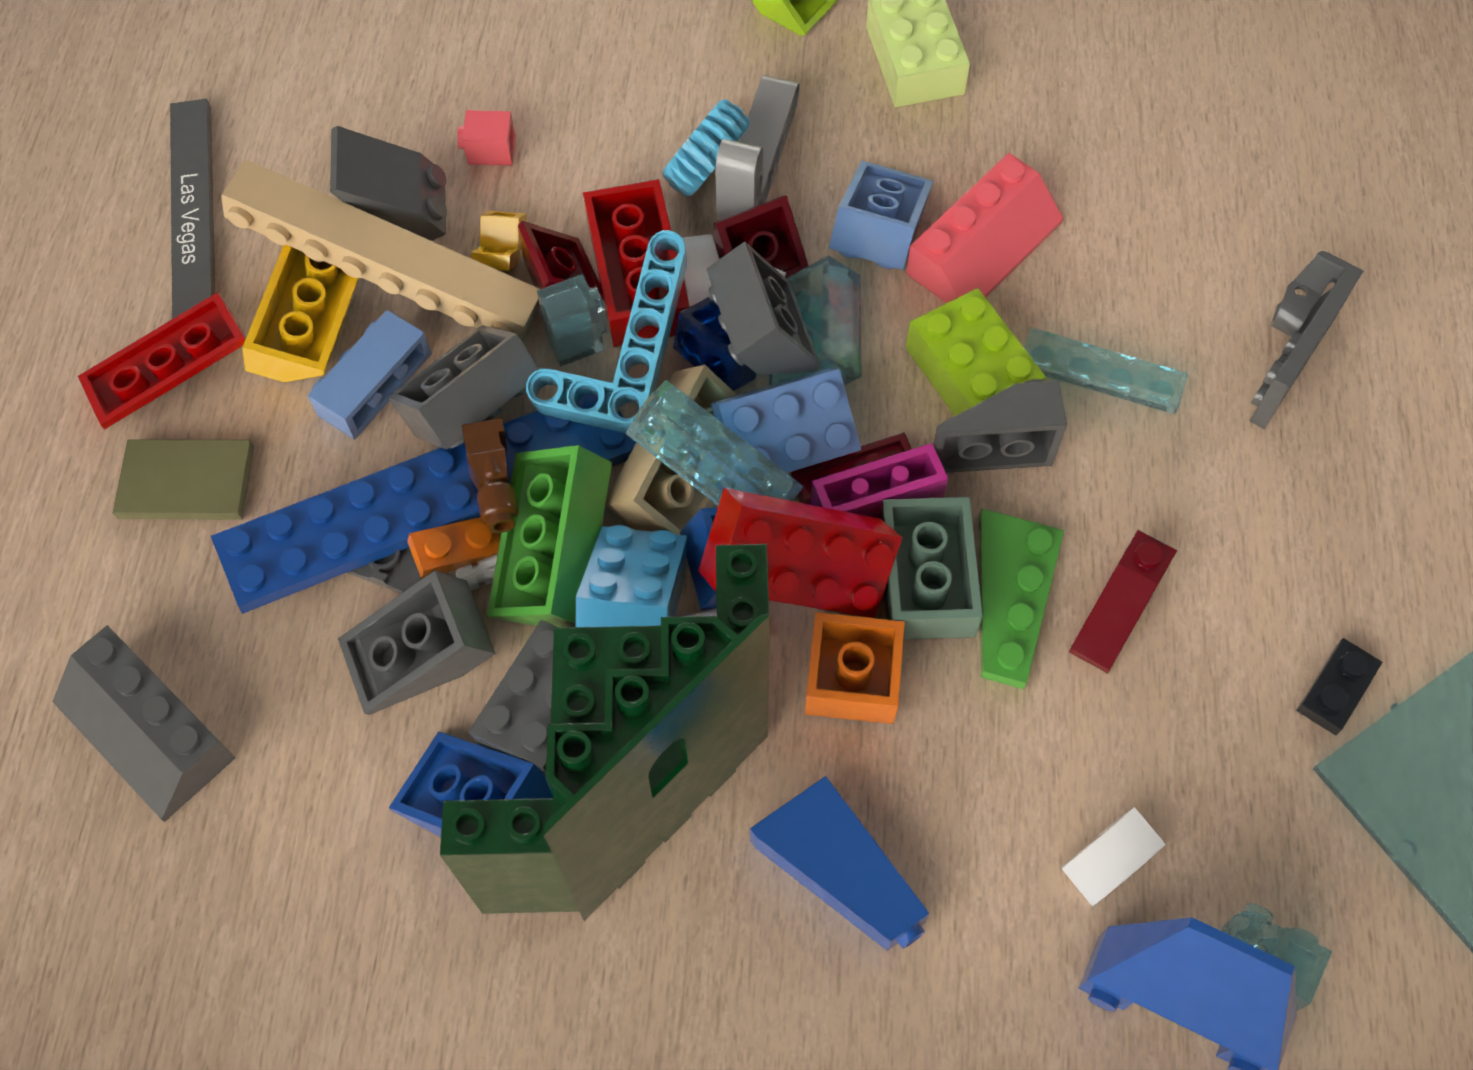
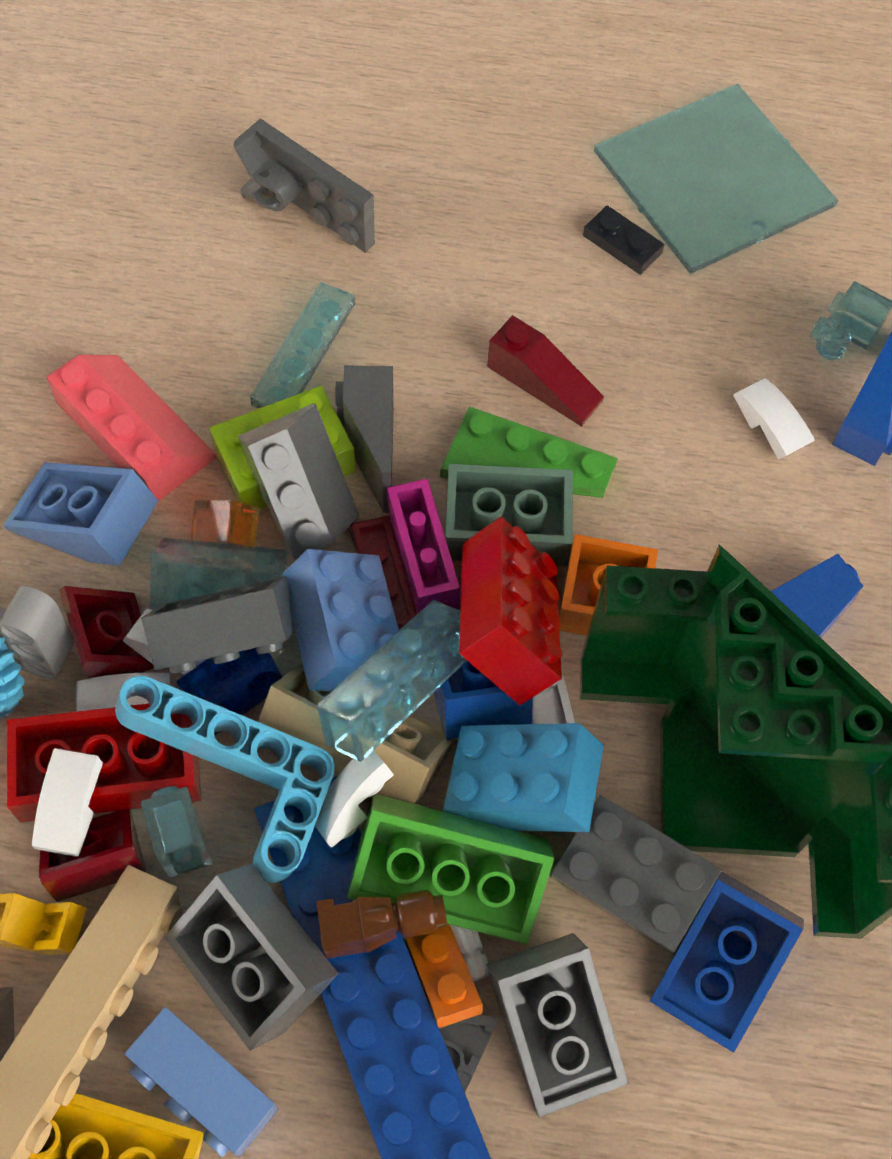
camera: 90 degrees left, 0 degrees up
(574, 226) = (64, 801): none -> white slope
(604, 440) = (341, 809): none -> white slope
(883, 324) = (224, 522): none -> clear orange panel
(926, 366) = (300, 480): none -> dark grey slope

